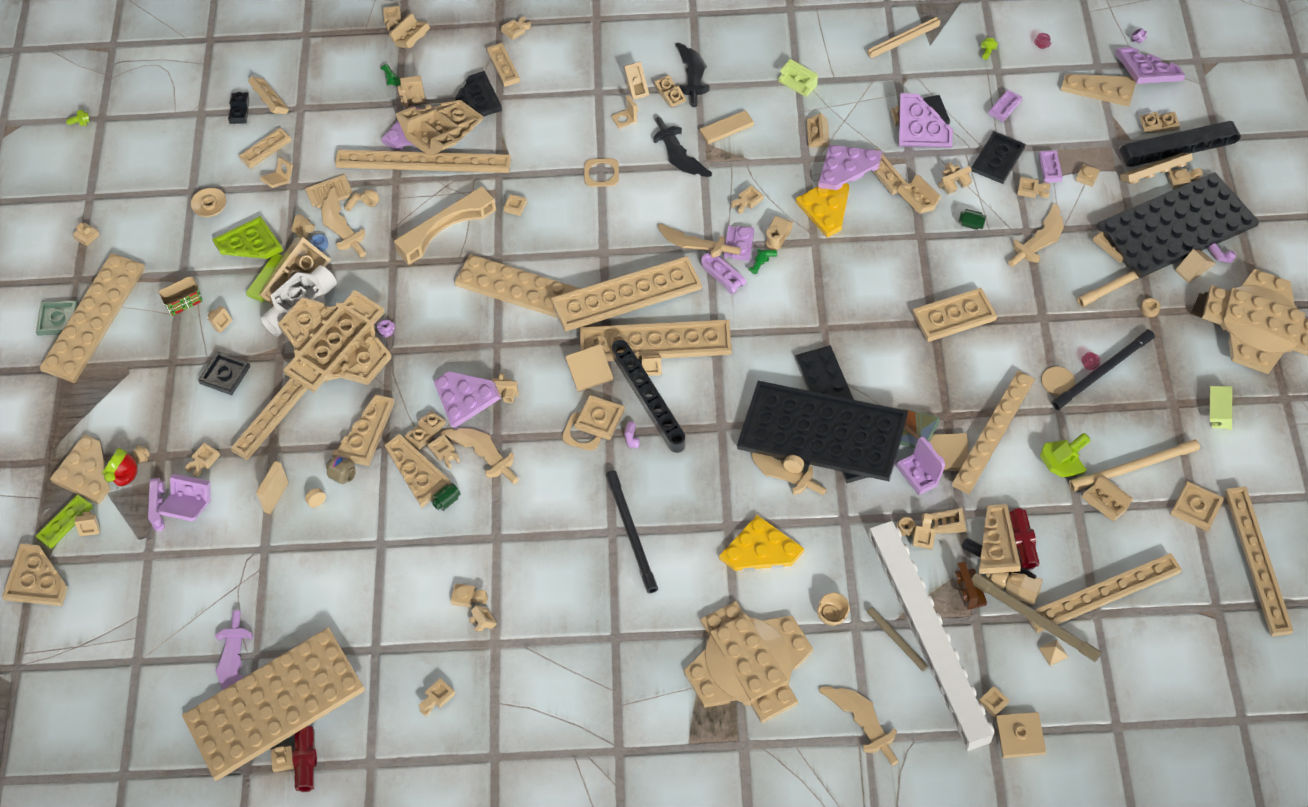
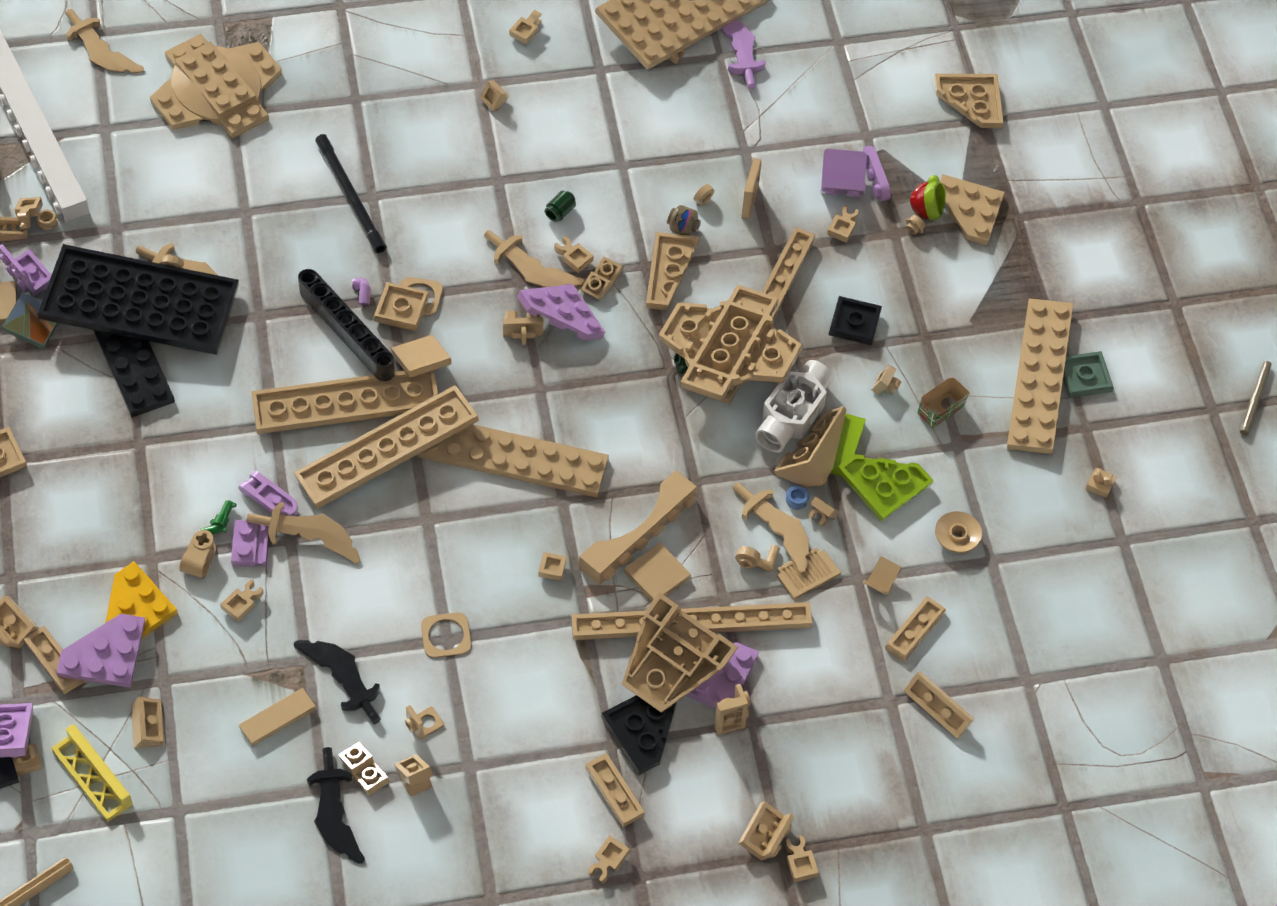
camera: 165 degrees right, 0 degrees up
(63, 521) = (970, 155): lime tile -> none
(82, 117) = (1185, 645): lime plate -> none
(87, 524) = (941, 149): tan tile -> none
(239, 108) = (974, 686): black slope -> none
(386, 331) = (679, 397): lavender plate -> none
(391, 78) = (773, 755): green piece -> none
(416, 470) = (593, 228): tan wing -> none
(437, 196) = (657, 572): none -> tan tile
(465, 595) = (517, 120): tan plate -> none
(652, 364) = (347, 368): tan tile -> none
(760, 547) = (207, 190): yellow plate -> none
(798, 78) = (175, 805): yellowish green hinge -> none
(833, 609) = (129, 129): tan hair -> none
(854, 105) = (97, 765): none -> light yellow fence
(897, 639) = (62, 117): dark tan bar -> none

